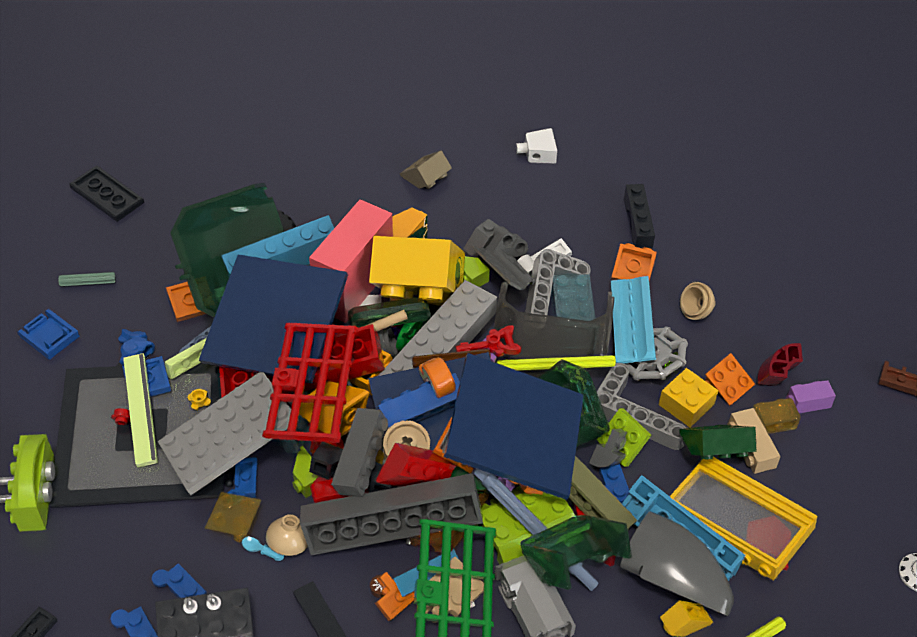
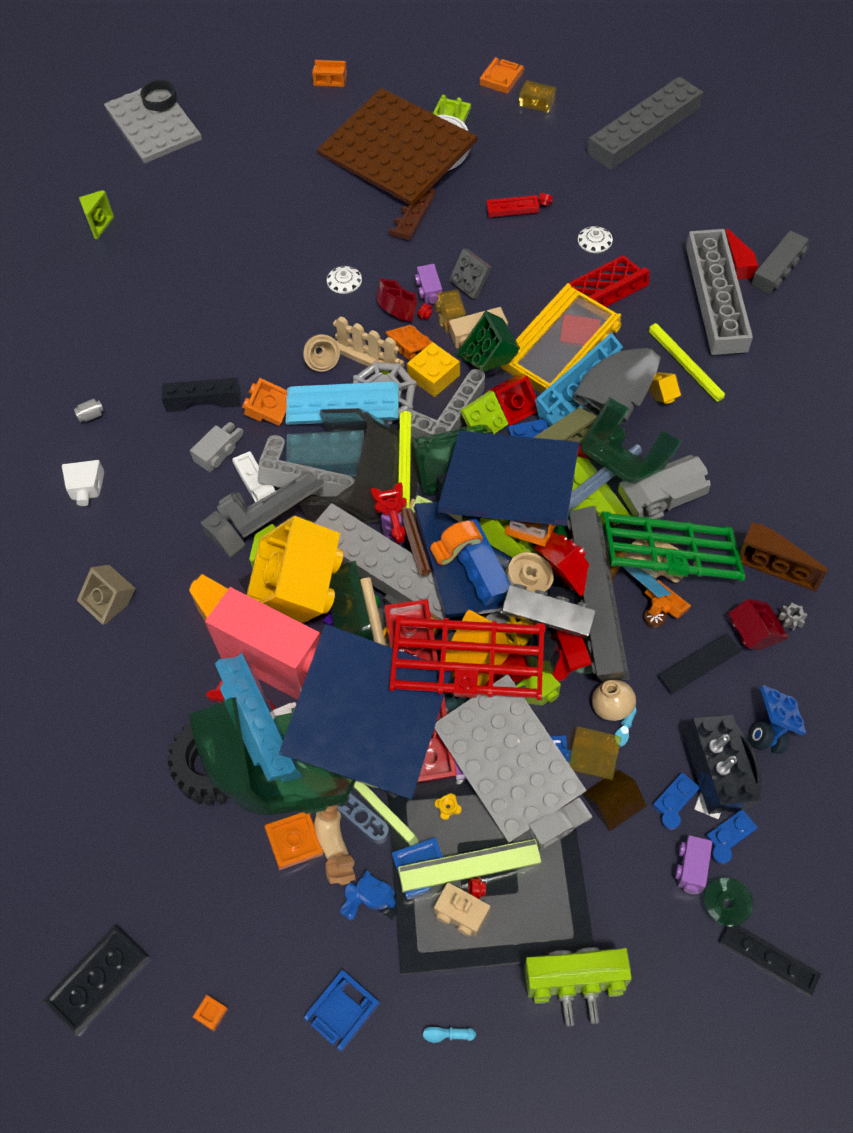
camera: 85 degrees left, 10 degrees up
(12, 403) = (437, 1034): none -> medium azure piece
(66, 257) = (210, 1013): none -> orange tile
(72, 606) = (736, 894): none -> clear green dish
(87, 279) = (253, 1002): sand green axle -> none
(103, 402) = (461, 910): none -> tan brick
(112, 590) = (695, 864): none -> medium lavender brick
(167, 478) = (559, 824): none -> light grey piece
(187, 532) = (615, 799): none -> dark brown slope
(191, 320) = (328, 831): none -> piece
(580, 231) = (216, 446): none -> light grey hinge
(609, 453) = (501, 424): dark grey brick -> none
(616, 144) = (89, 410): none -> light grey brick
(656, 465) = (516, 398): none -> red slope
(708, 341) = (358, 350): none -> tan fence
(771, 393) = (425, 311): none -> red plate
(810, 327) = (344, 279): none -> white dish
(827, 432) = (474, 273): none -> dark grey plate
(834, 585) = (613, 290): none -> red fence
(852, 124) = (97, 211): none -> lime slope

